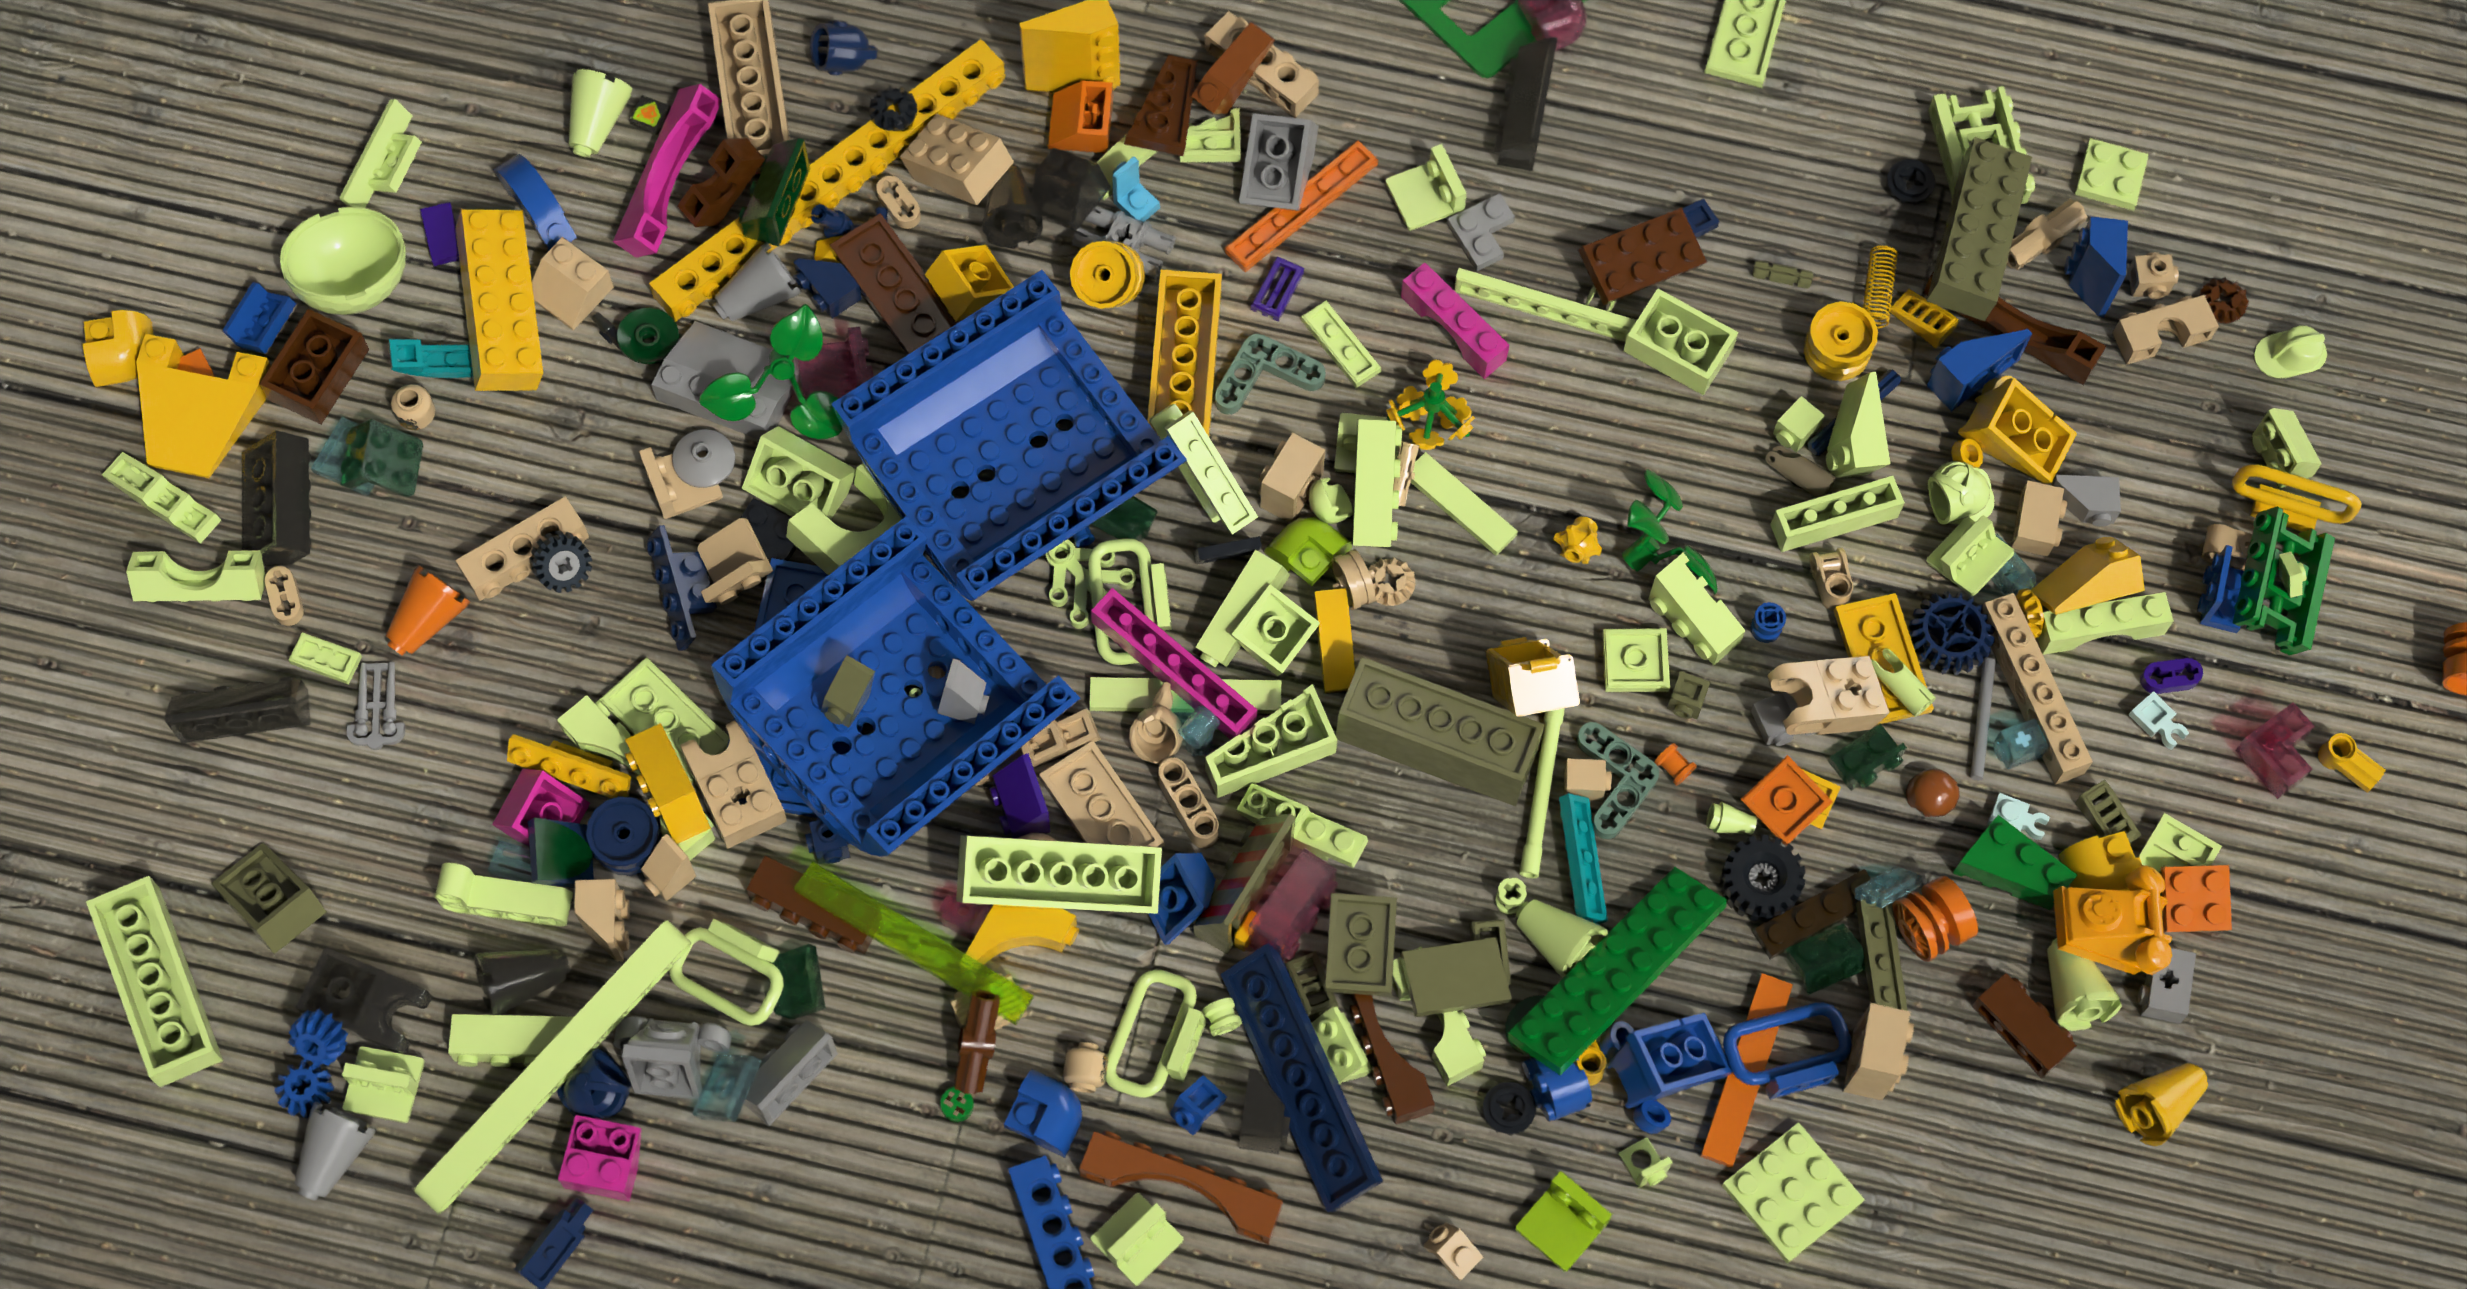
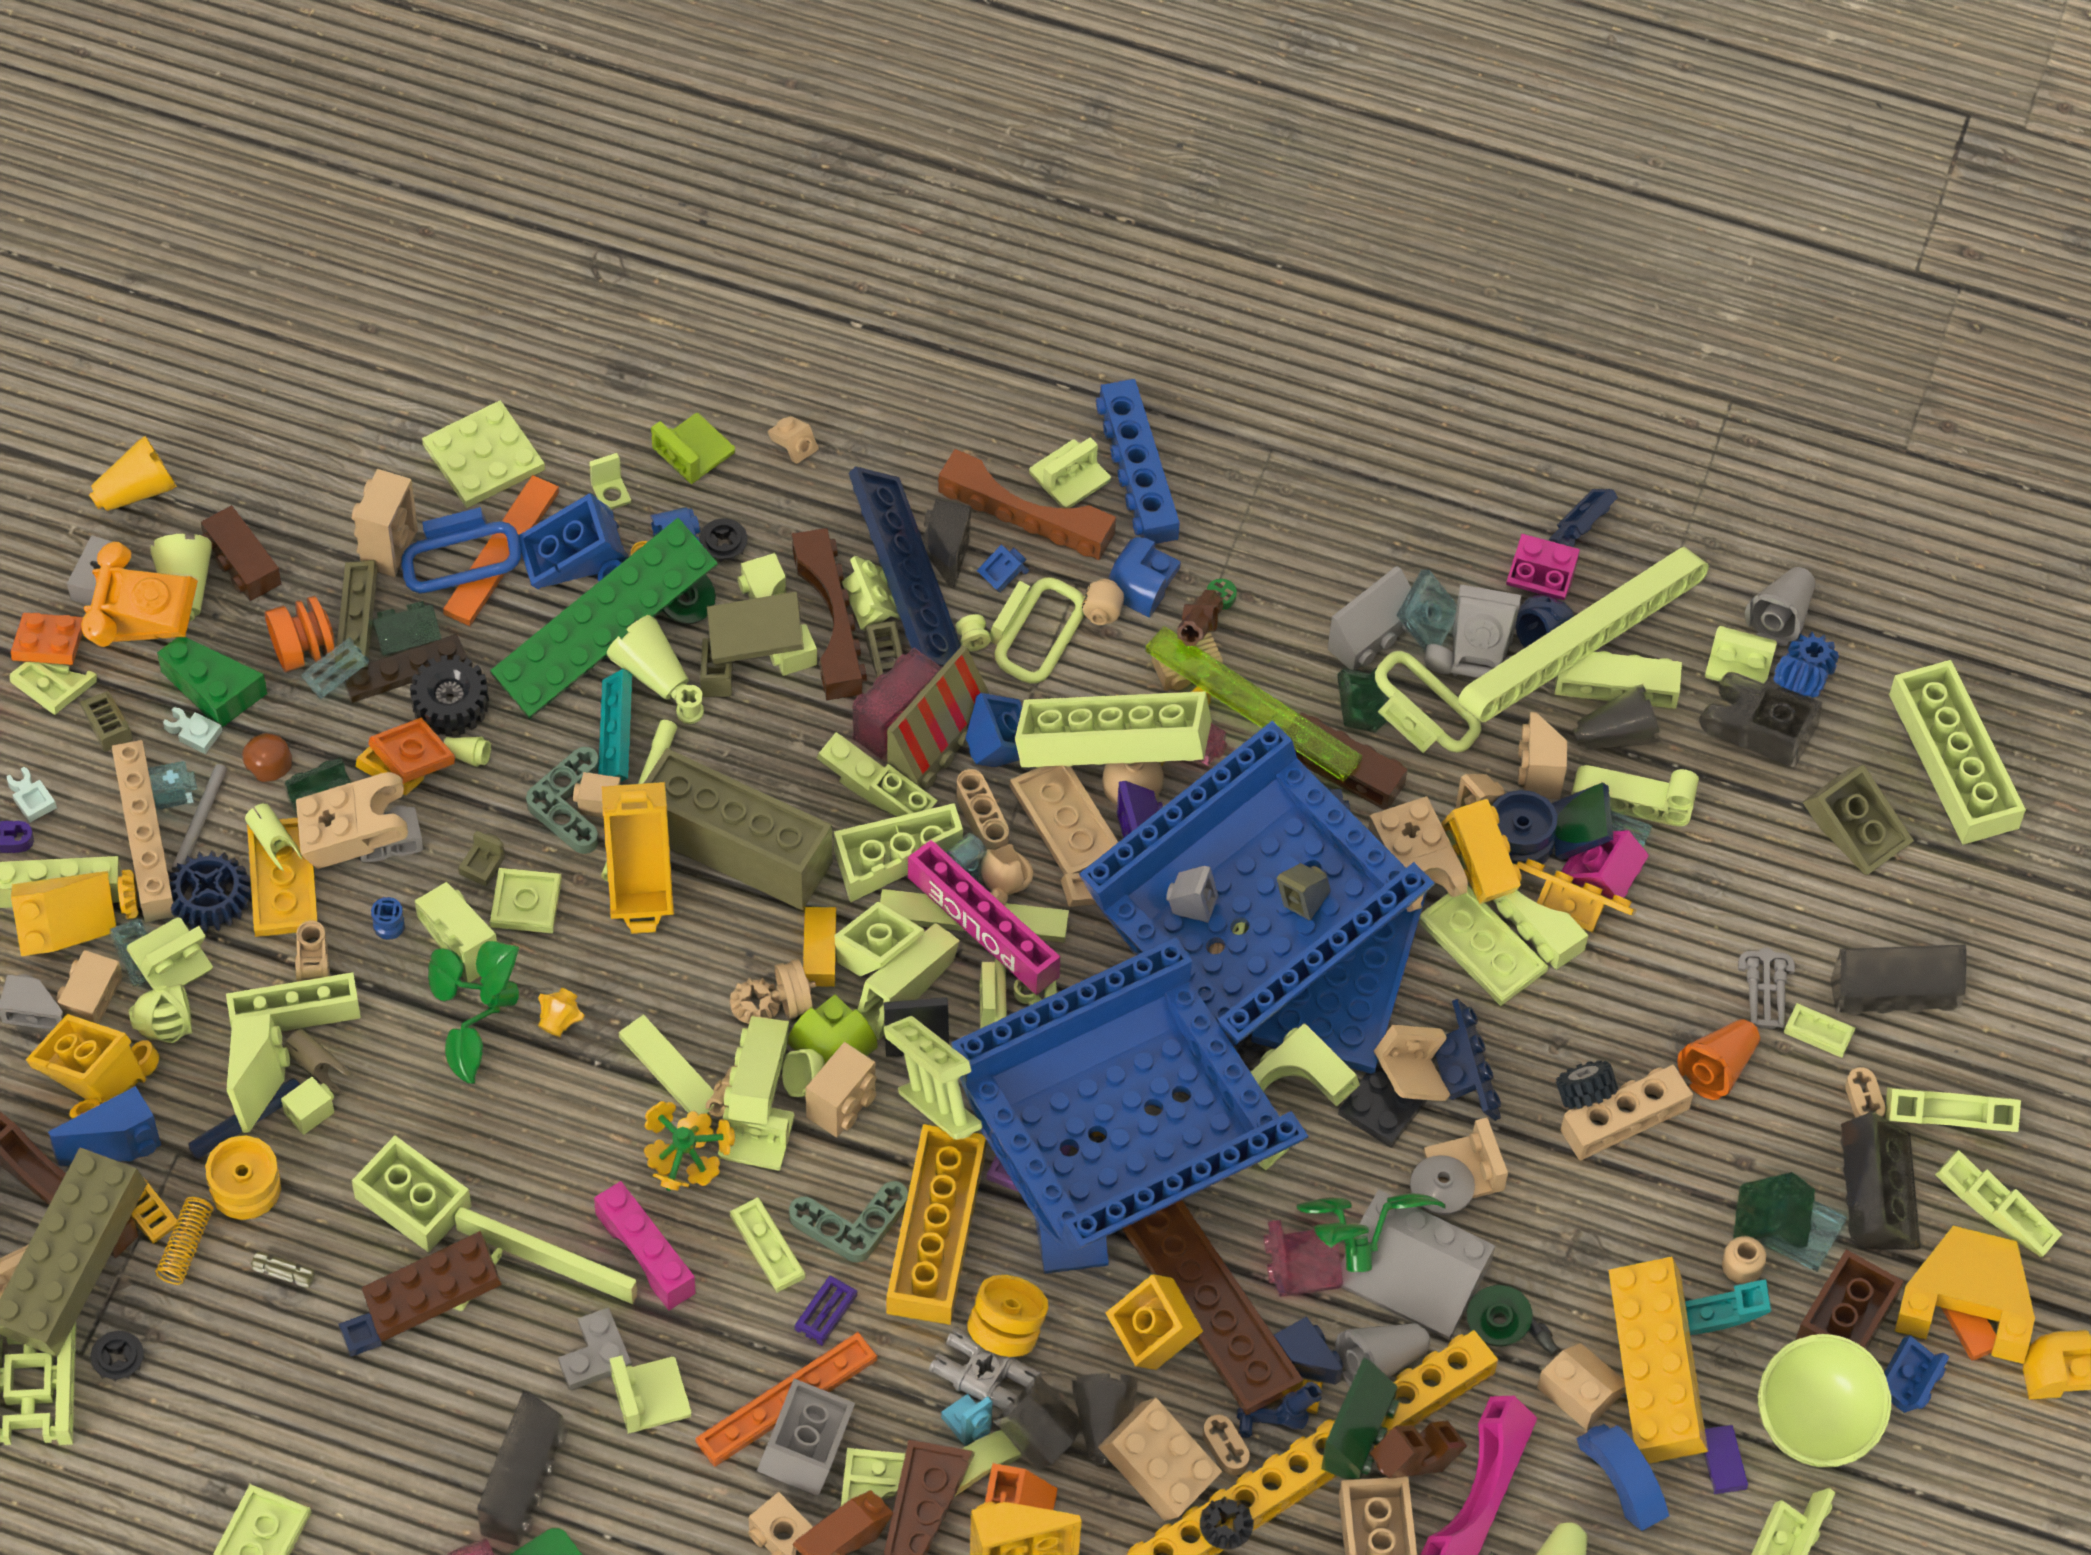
camera: 175 degrees left, 10 degrees down
(796, 473) = (1344, 1156): yellowish green slope -> none
(1361, 944) = (838, 656): olive plate -> none
(1675, 764) = (509, 802): orange bush -> none
(2101, 862) = (126, 673): yellow brick -> none

